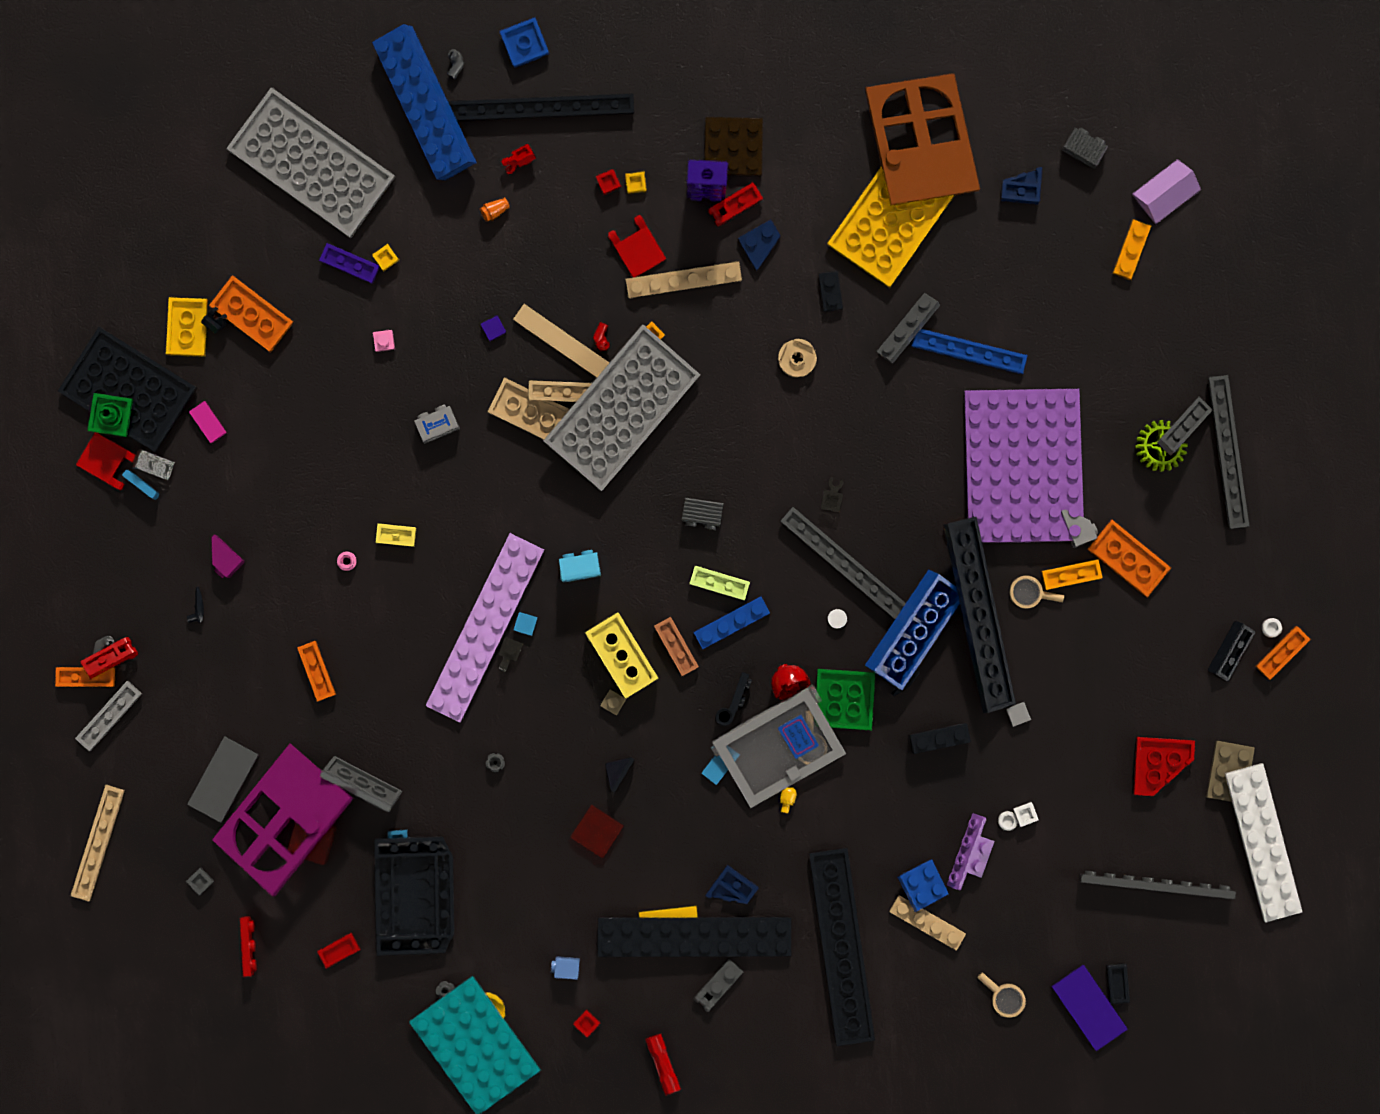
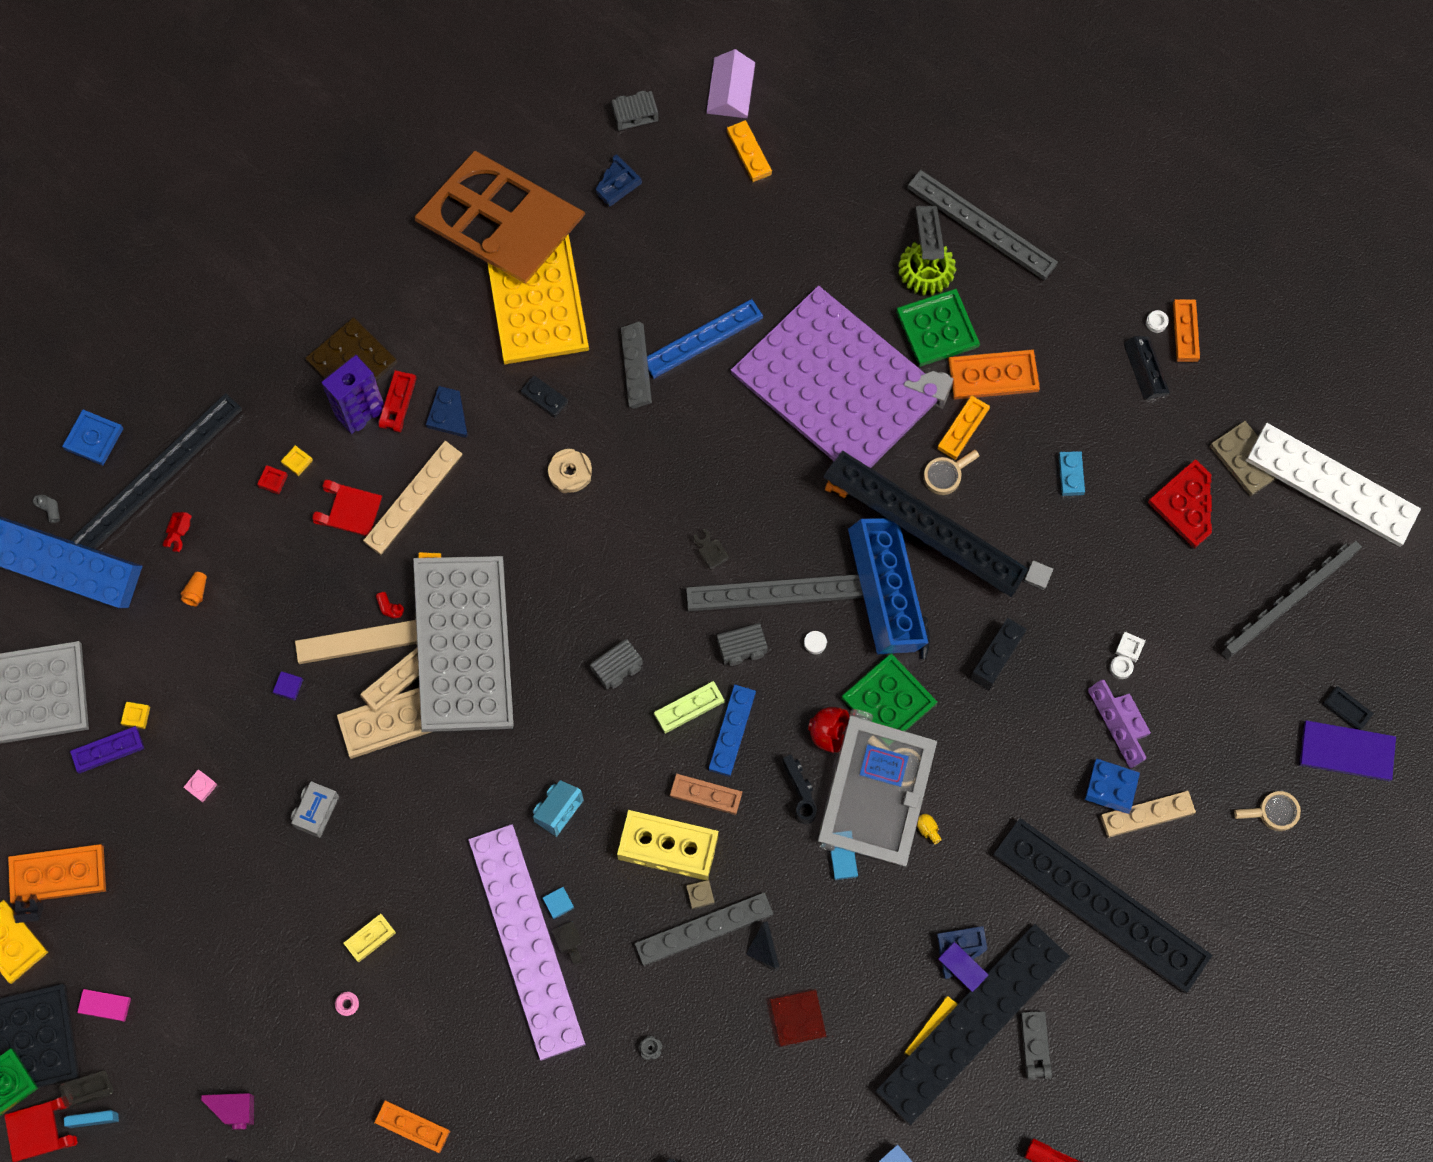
camera: 40 degrees left, 15 degrees down
(595, 725) = (704, 929): none -> dark grey plate
(721, 899) = (963, 966): none -> dark purple tile
(791, 576) = (742, 644): none -> dark grey brick
(1108, 671) = (1071, 473): none -> dark azure plate
(1125, 492) = (937, 327): none -> green plate

